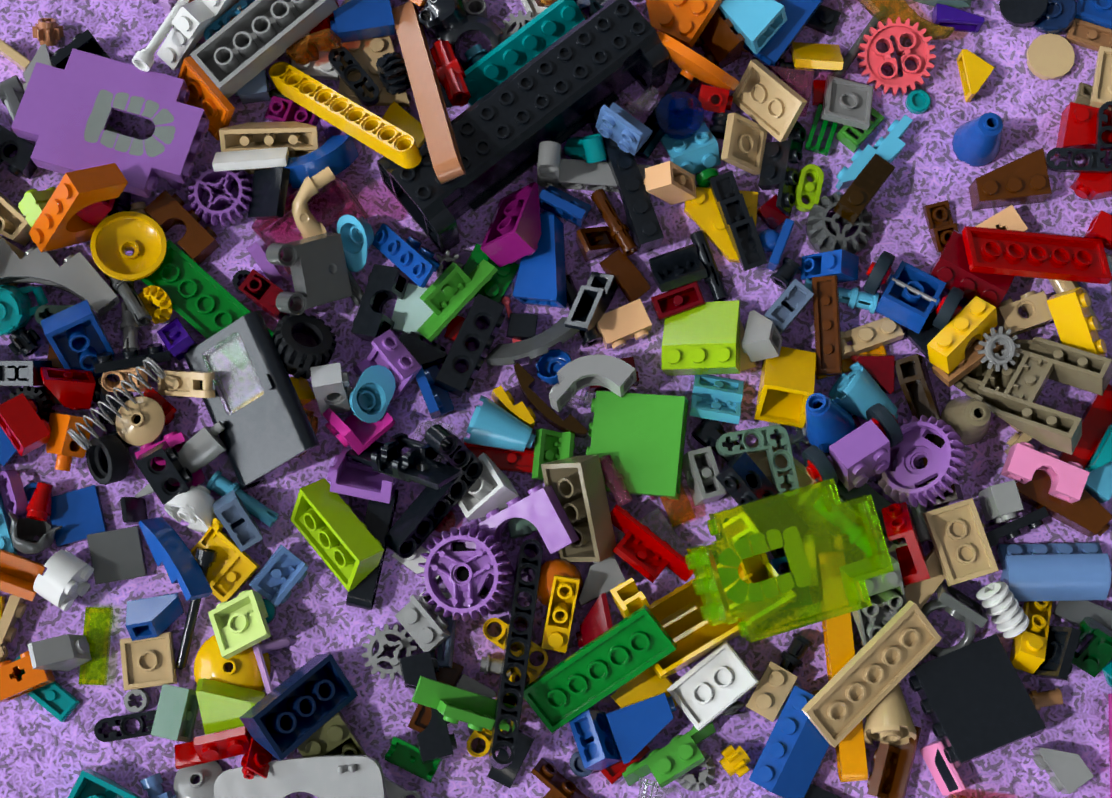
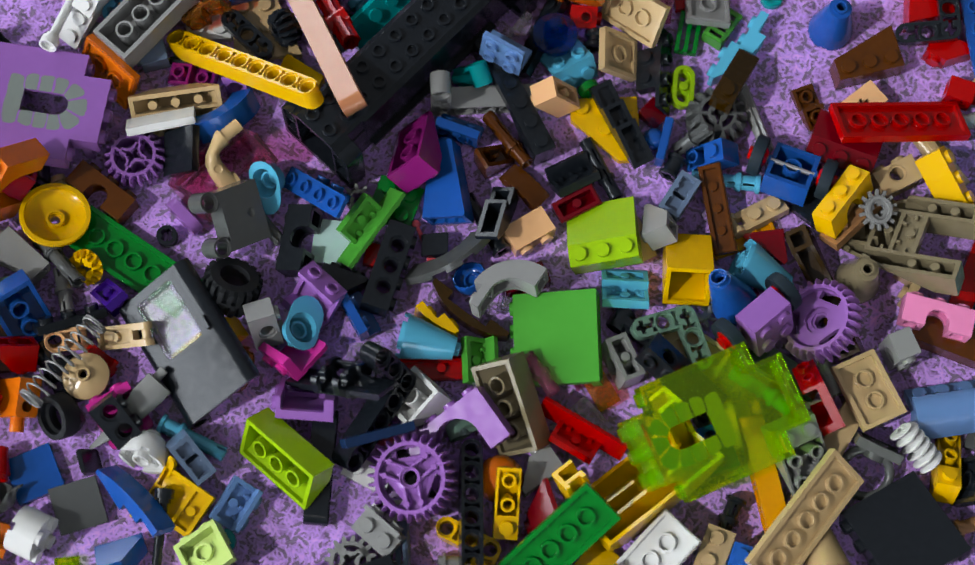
camera: 10 degrees left, 5 degrees down
(263, 293) = (187, 244): dark red slope -> none
(433, 524) = (377, 434): none -> dark blue tile
(811, 245) = (693, 138): none -> dark grey axle
(880, 228) = (753, 116): none -> light grey axle
(1012, 528) = (914, 373): black plate -> none

